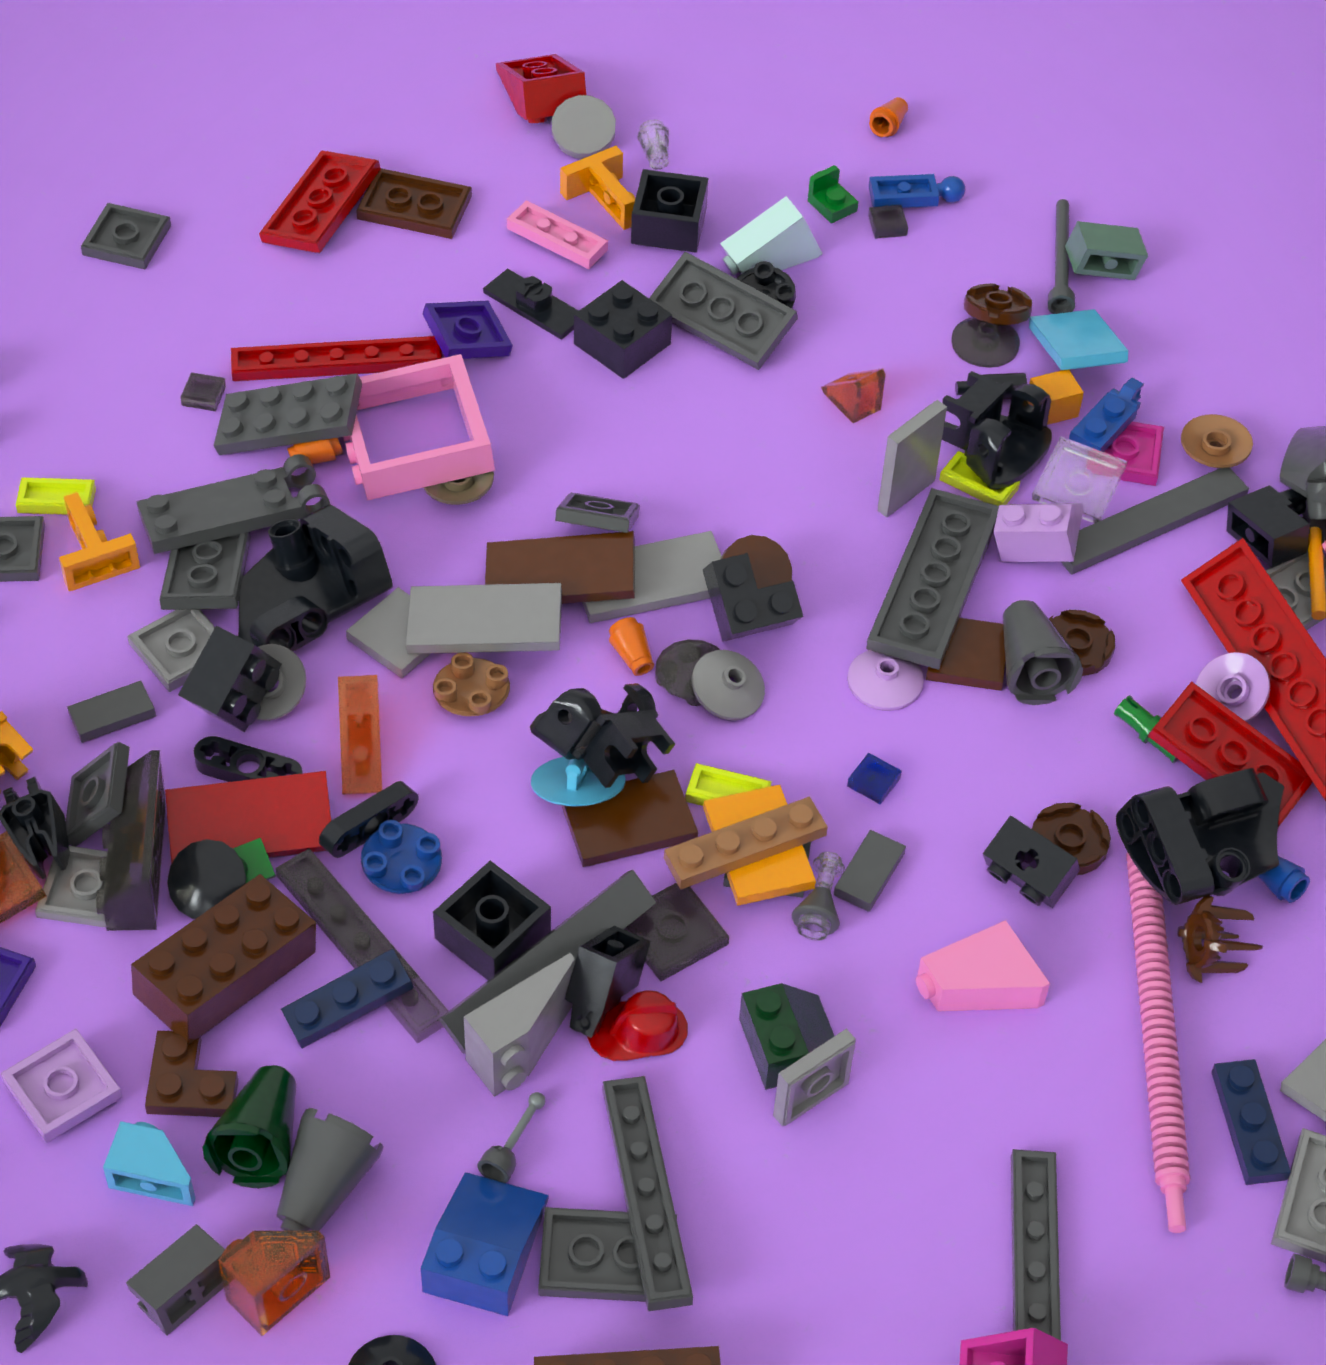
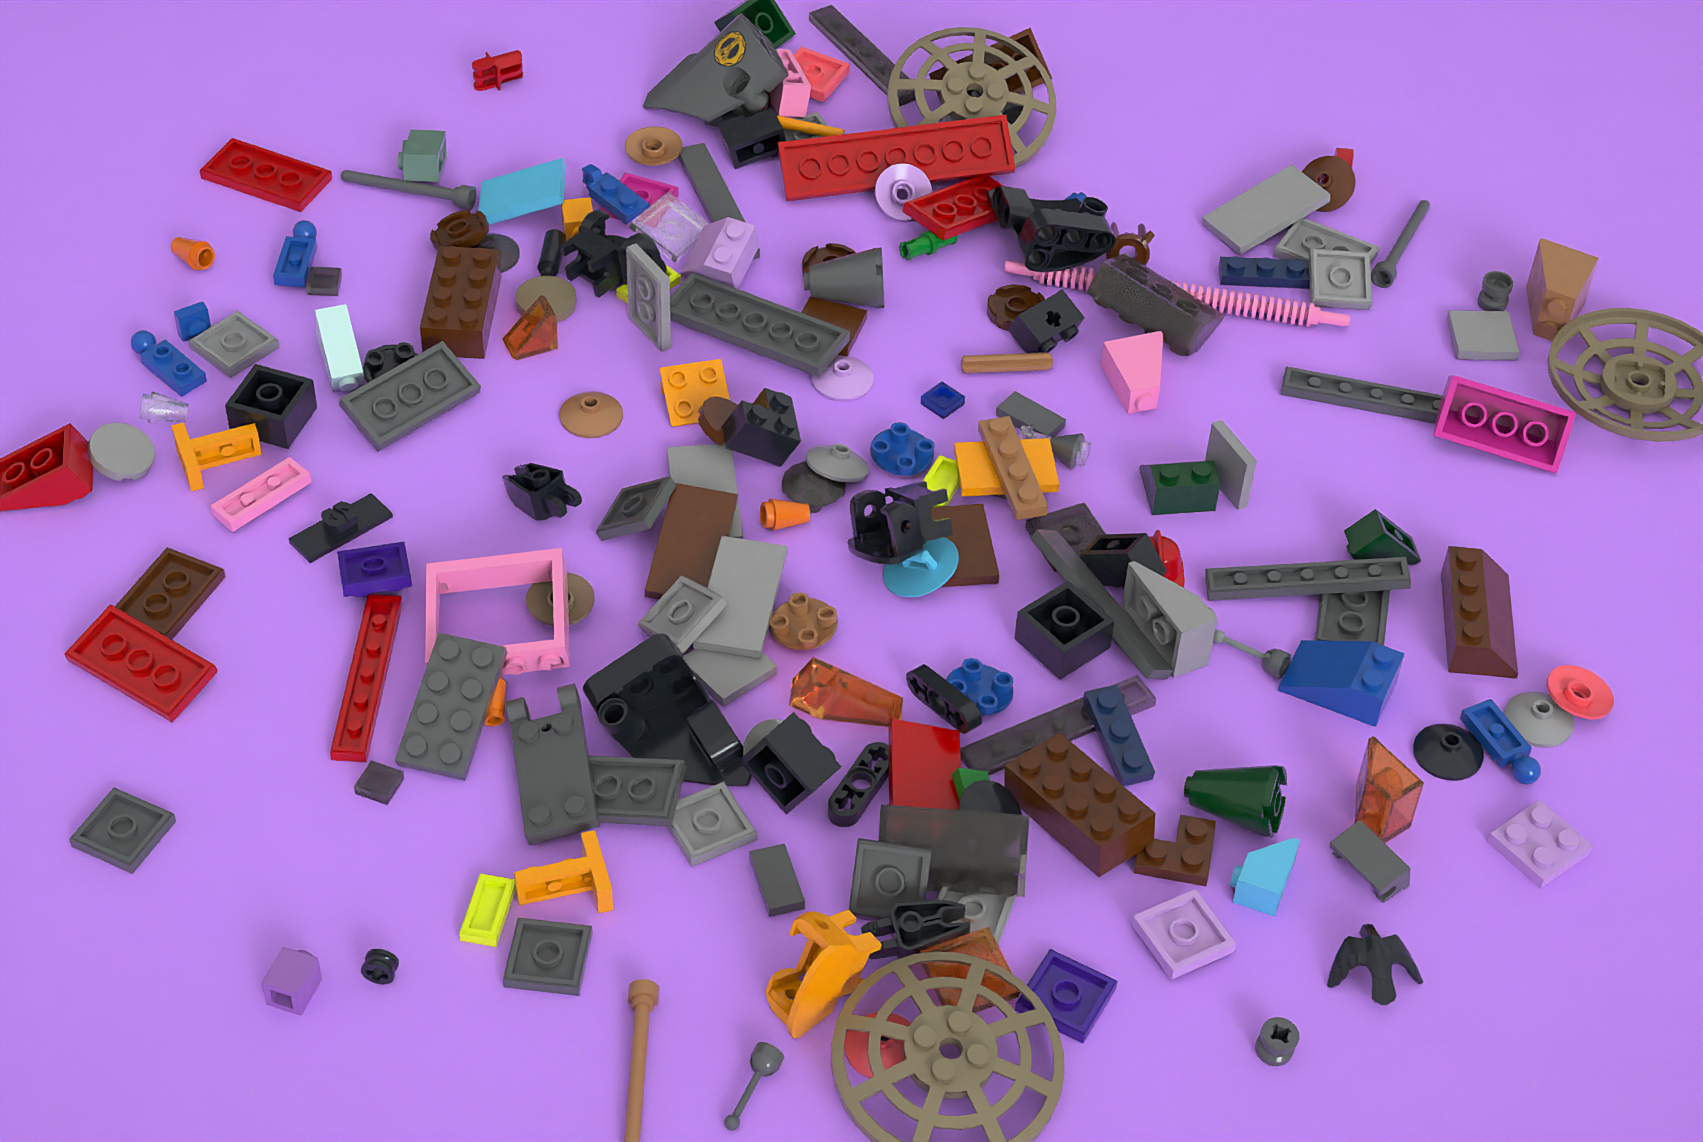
camera: 80 degrees left, 5 degrees down
(323, 1170) = (1285, 746): dark grey cone -> none
(447, 571) = (683, 612): none -> light grey tile
(603, 432) = (540, 491): none -> black hinge
(622, 329) = (411, 463): black brick -> none
(723, 135) = (167, 363): none -> blue plate
(733, 1281) = (1379, 537): none -> dark green slope
(755, 466) = (591, 414): none -> medium nougat dish
(768, 744) = (902, 450): none -> blue dish
(770, 175) = (234, 344): none -> light grey tile
(783, 136) = (192, 320): none -> blue plate
(809, 539) = (689, 386): none -> light orange hinge
(829, 196) = (281, 309): green bracket -> none
(881, 323) = (461, 300): none -> reddish brown brick
(917, 389) = (557, 291): none -> dark tan tile
(959, 835) = (1006, 362): none -> medium nougat axle
(1038, 147) = (266, 174): none -> red tile
(1108, 976) = (1154, 304): none -> clear smoke slope
(1259, 1211) = (1340, 279): none -> light grey tile
(1293, 286) = (496, 70): none -> red arm

